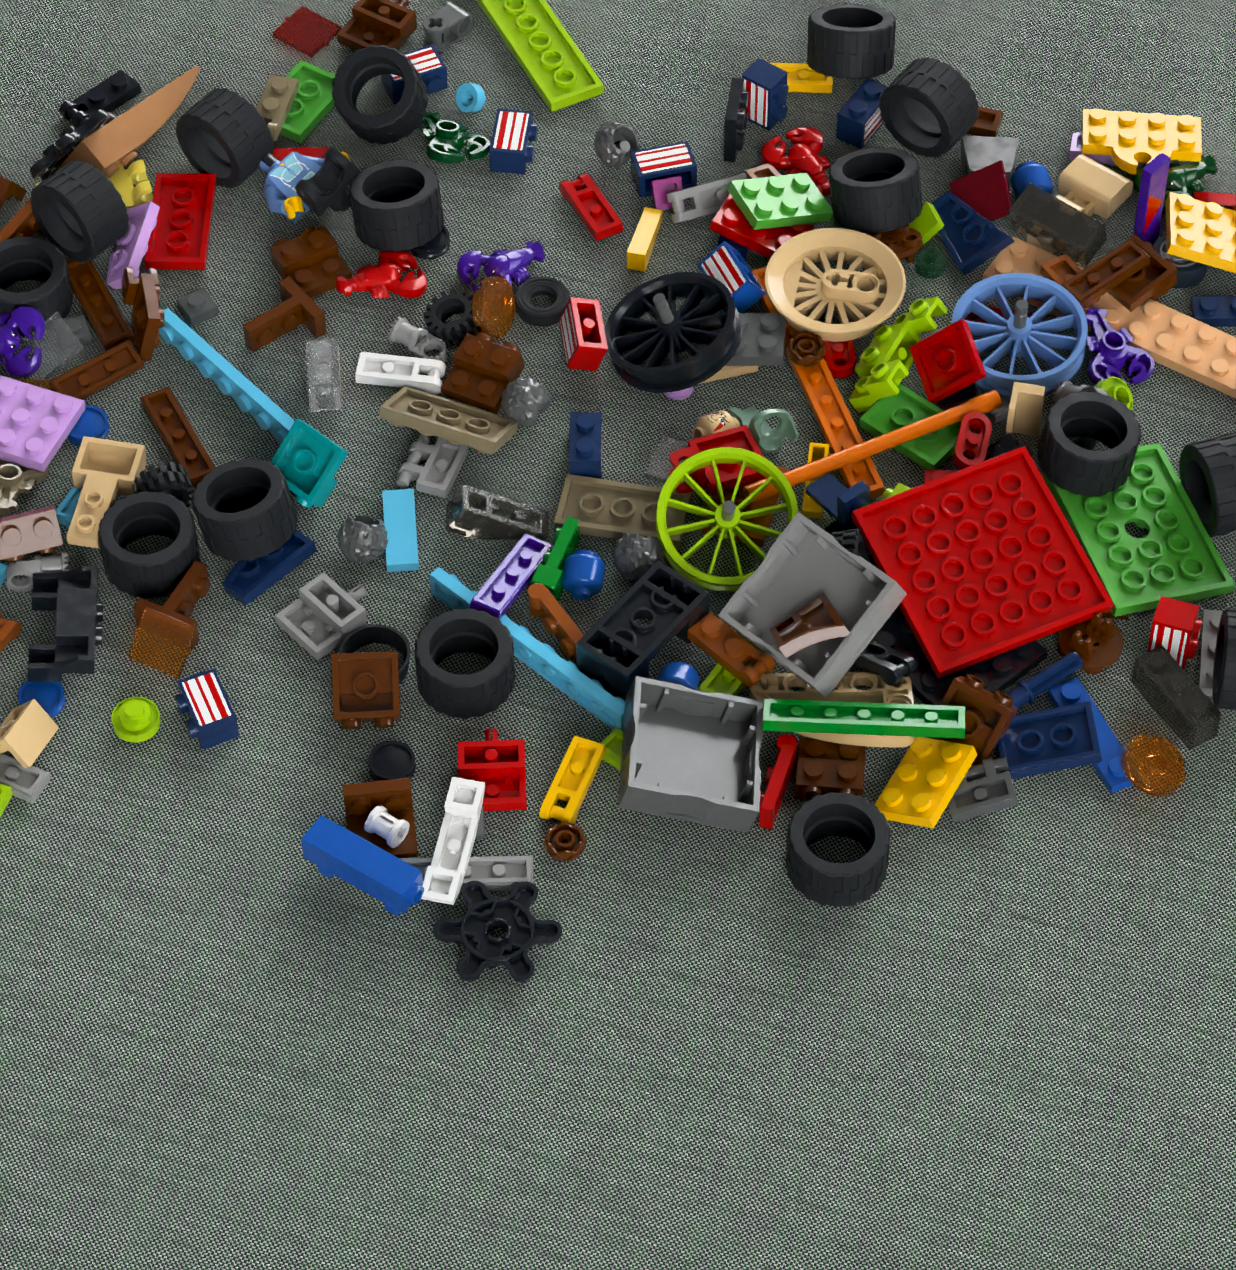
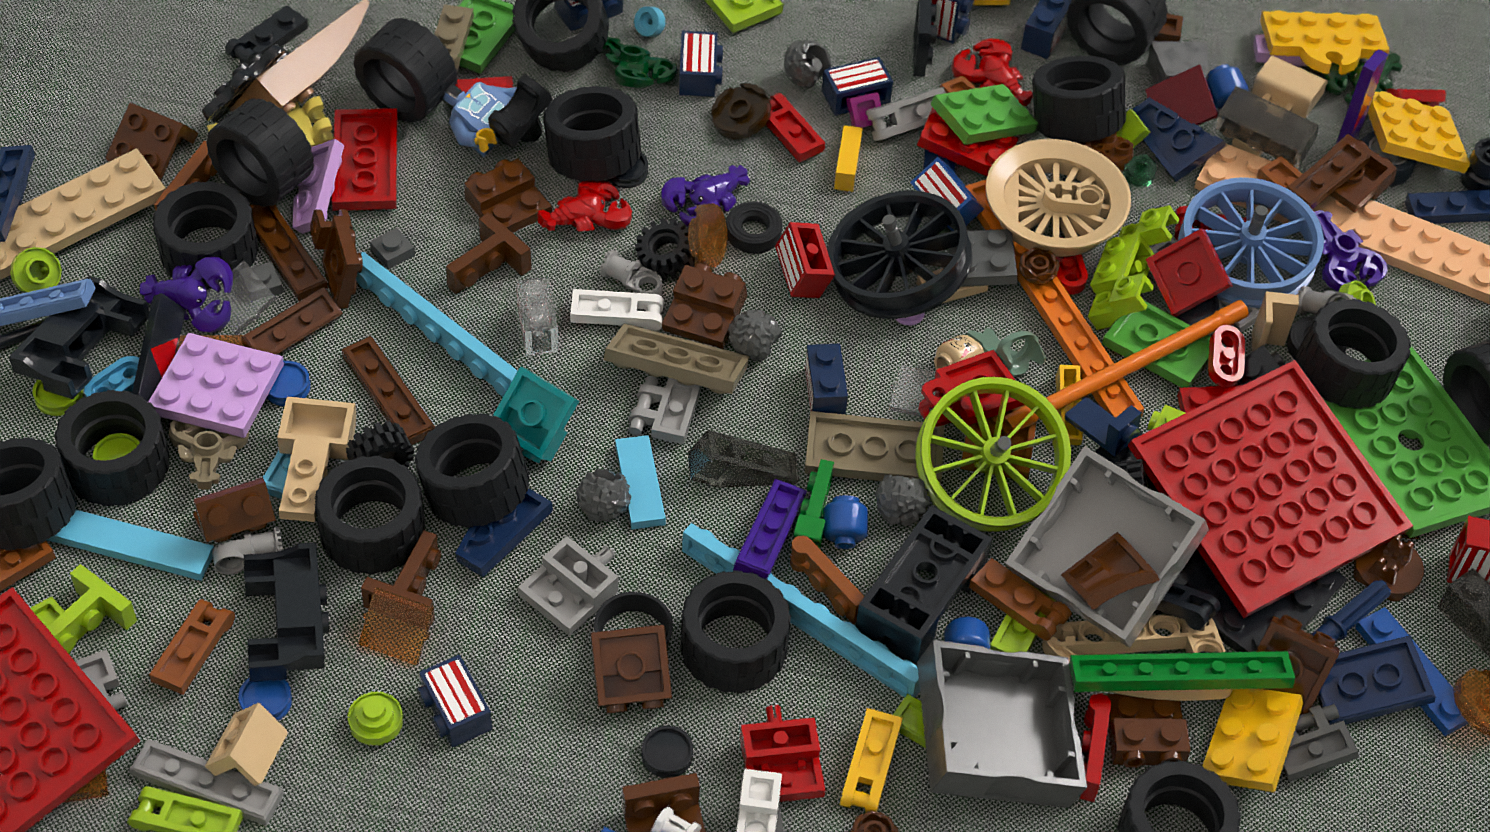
camera: 10 degrees left, 0 degrees up
(546, 189) = (741, 111): none -> dark brown tile

